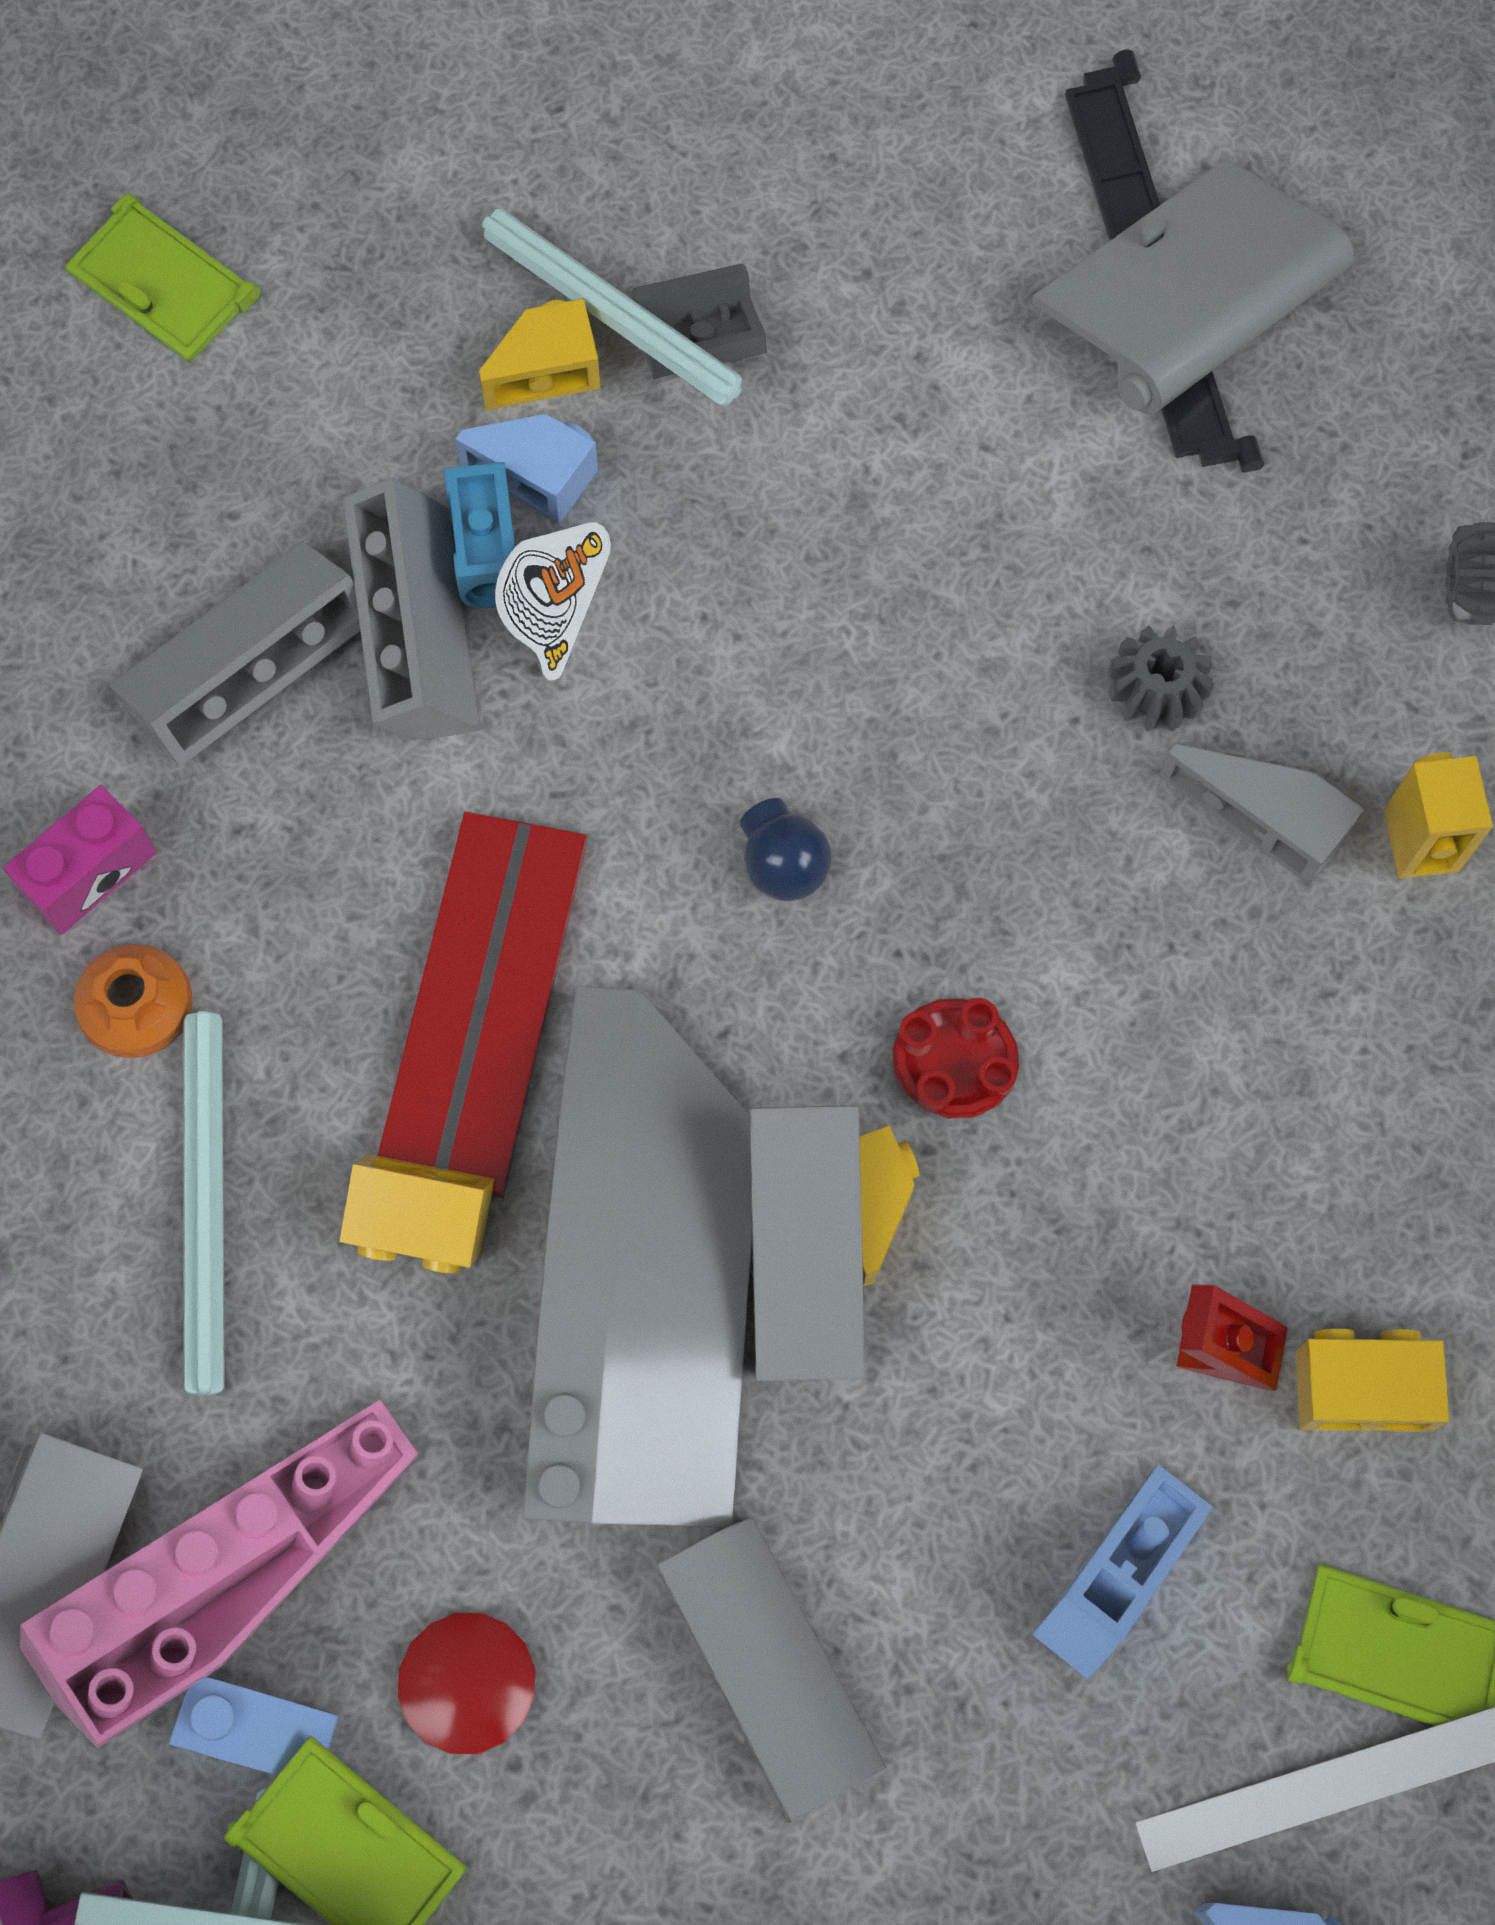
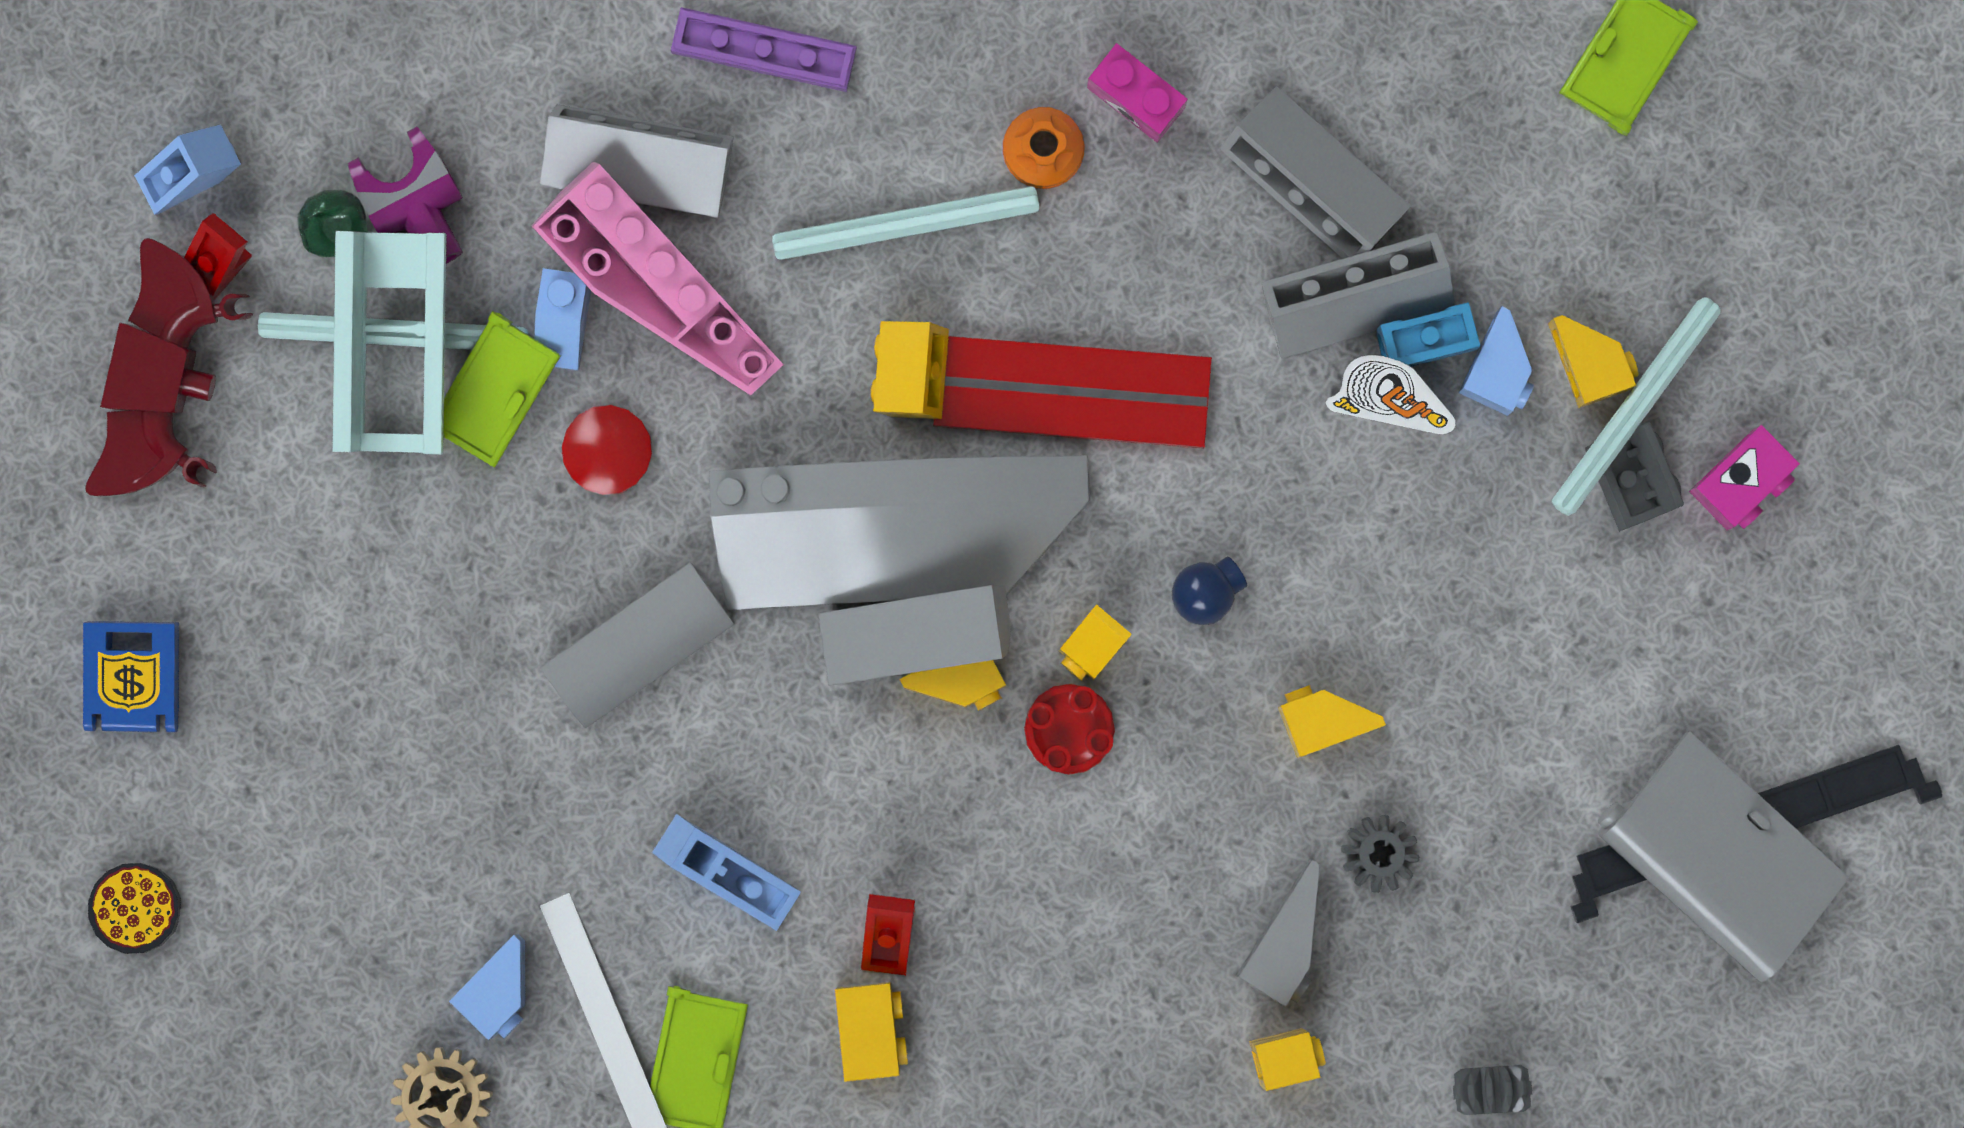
camera: 85 degrees right, 15 degrees up
(718, 203) = (1745, 478): none -> dark pink brick
(841, 999) = (1093, 644): none -> yellow slope
(978, 727) = (1323, 720): none -> yellow slope

